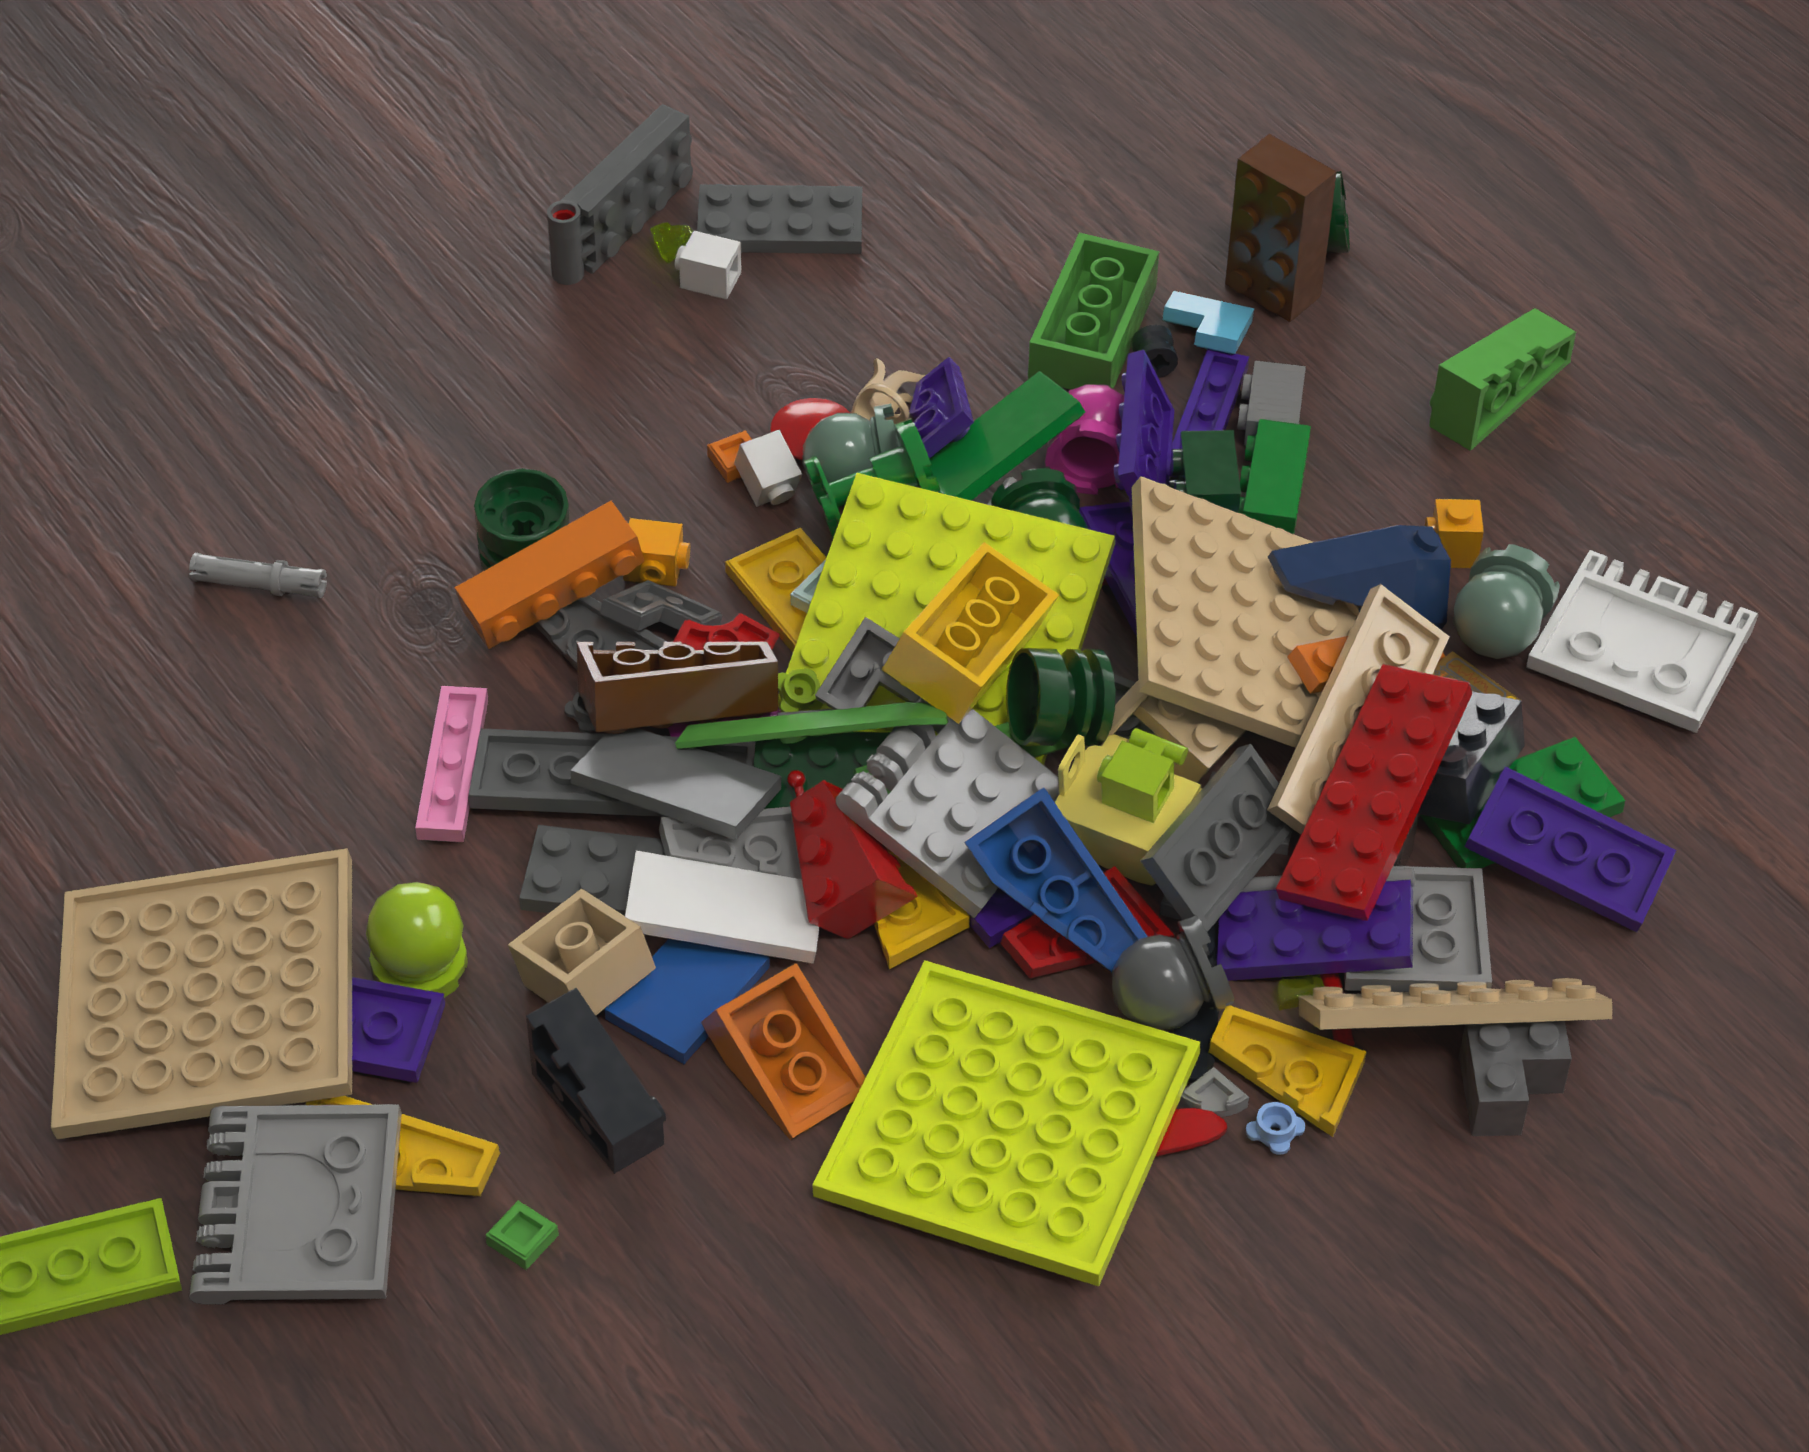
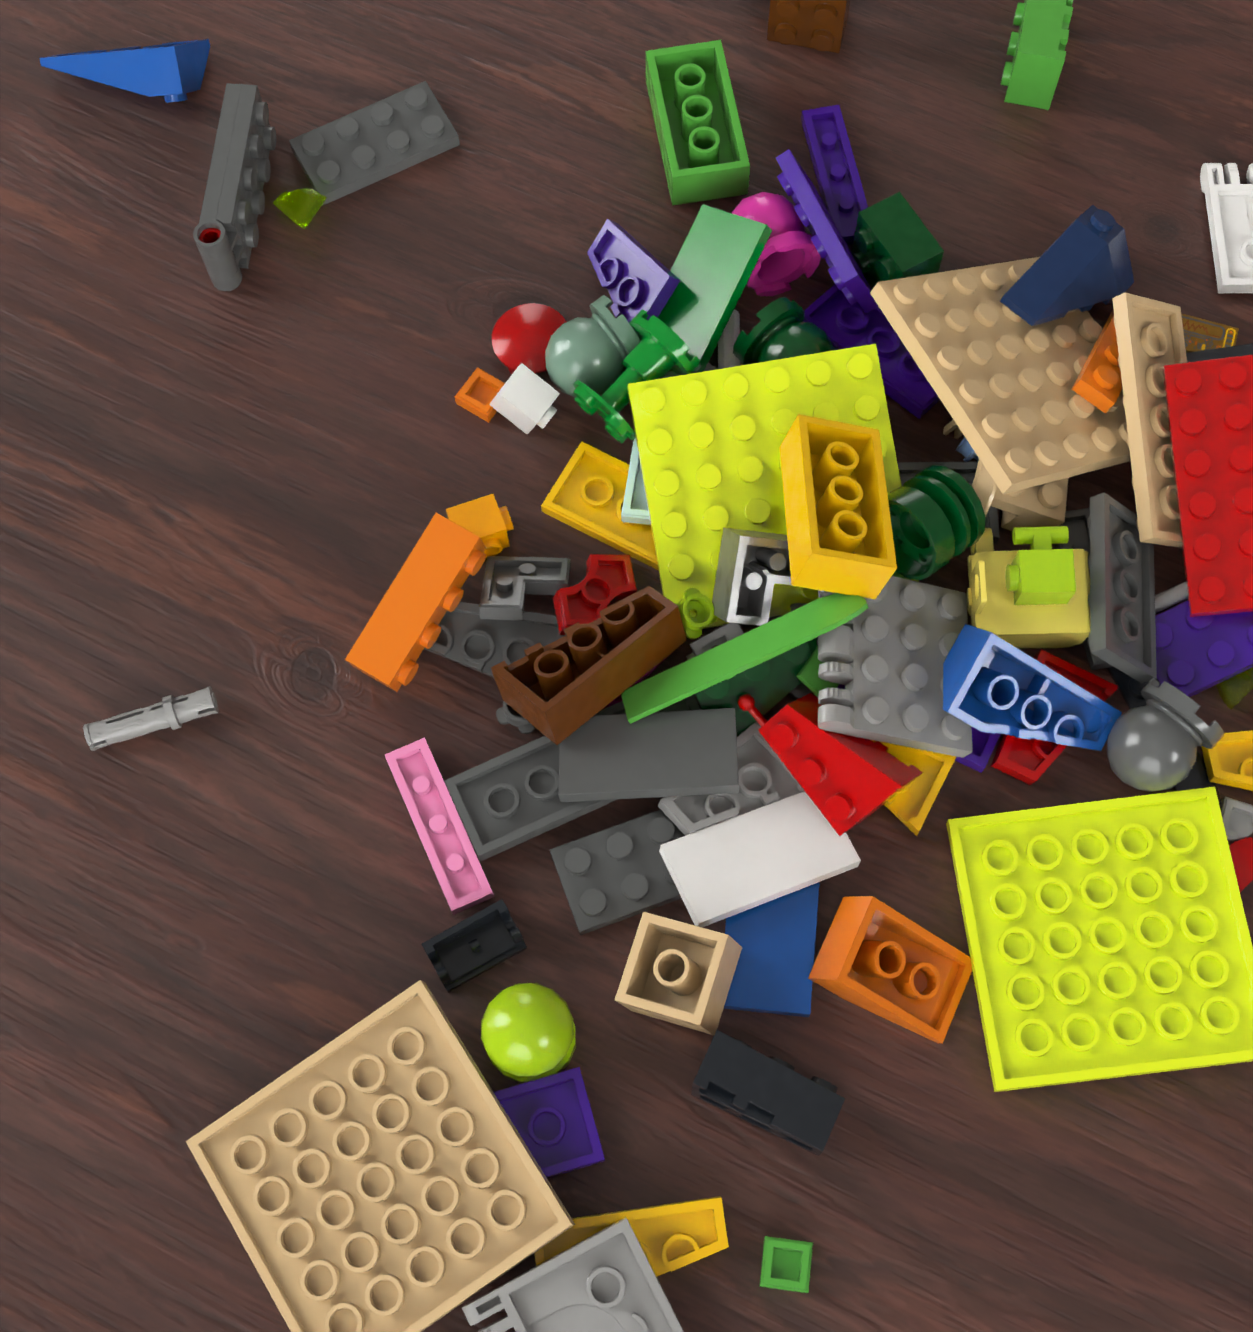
camera: 25 degrees left, 20 degrees up
(418, 855) = (474, 945): none -> black hinge
(516, 512) = (346, 547): dark green wheel -> none
(606, 77) = (151, 71): none -> blue wedge
(709, 264) = (346, 217): white brick -> none
(884, 391) = (570, 282): tan piece -> none
(1158, 345) = (761, 133): black wheel -> none
(1218, 323) = (792, 77): medium azure tile -> none
(1272, 394) = (885, 141): light grey brick -> none
(1275, 474) = (934, 201): green brick -> none
(1459, 528) = (1102, 188): light orange brick -> none
(1504, 601) = (1184, 248): sand green tile -> none

